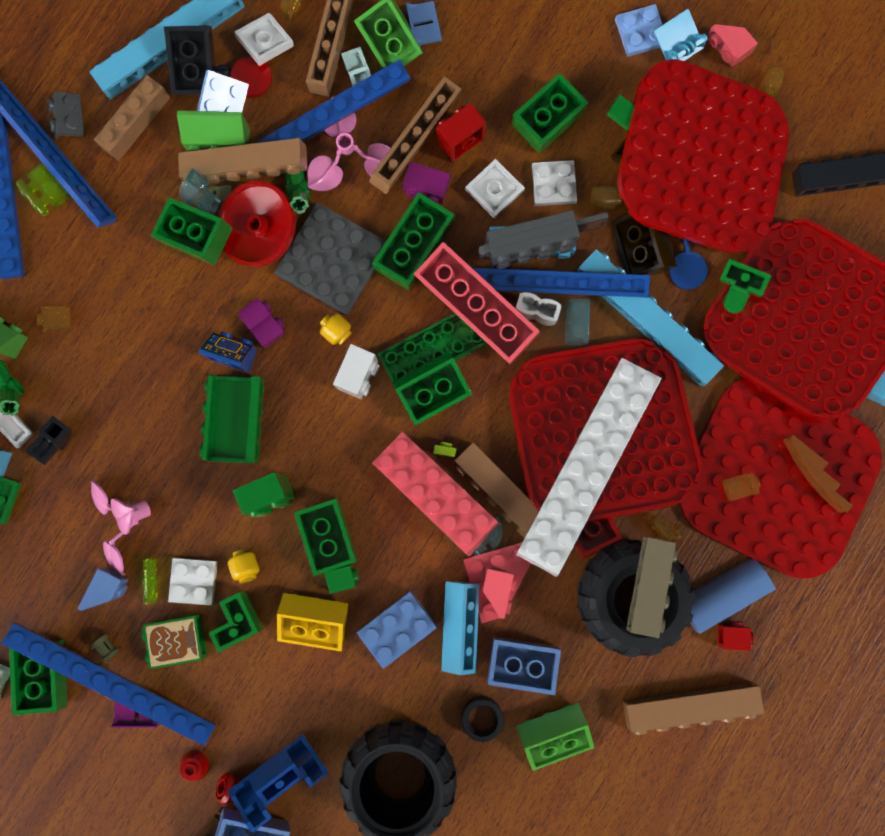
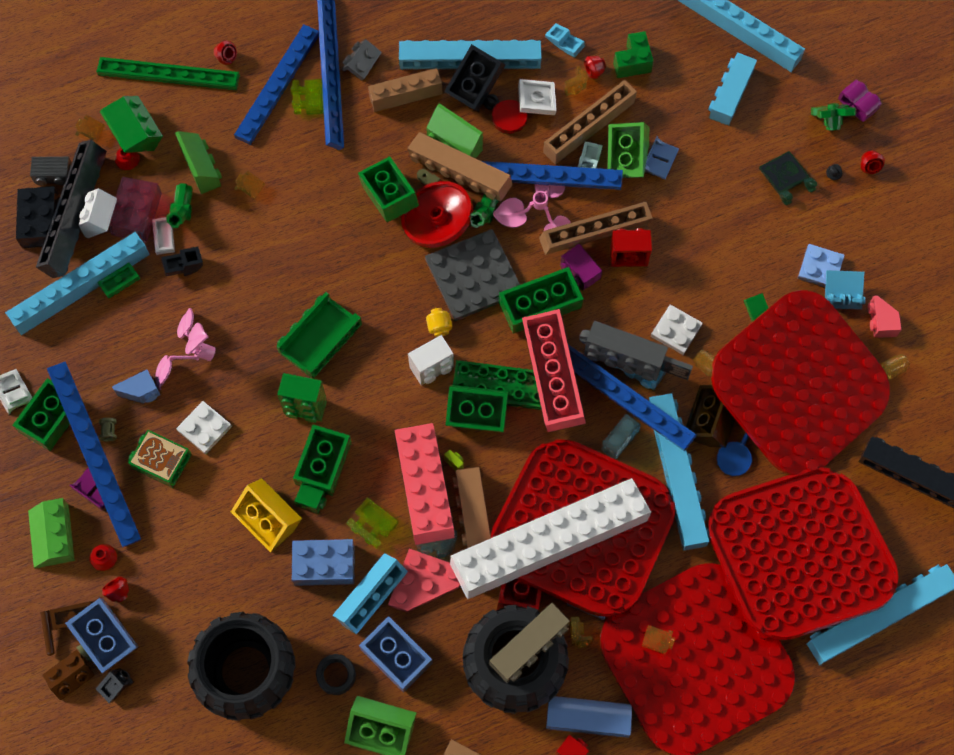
camera: 30 degrees right, 15 degrees down
(129, 780) = (51, 533): none -> bright green slope
(149, 581) = (174, 405): clear neon green pin -> none
(195, 191) = (411, 164): clear light blue brick -> none
(222, 93) = (479, 113): plate -> none
(229, 351) = (352, 287): slope -> none
(241, 622) = (215, 478): green brick -> none
(243, 566) = (247, 440): yellow head -> none
(261, 322) = (390, 283): magenta brick -> none
(274, 778) = (157, 603): blue bracket -> none
(412, 553) = (375, 517): none -> clear neon green plate
(494, 188) = (628, 304): white plate -> none
(497, 589) = (418, 583): coral slope -> none
(542, 310) = (594, 404): white brick -> none
(549, 113) = (707, 277): green brick -> none
(742, 282) = (764, 490): green brick -> none
(812, 468) = (723, 663): dark orange slope -> none

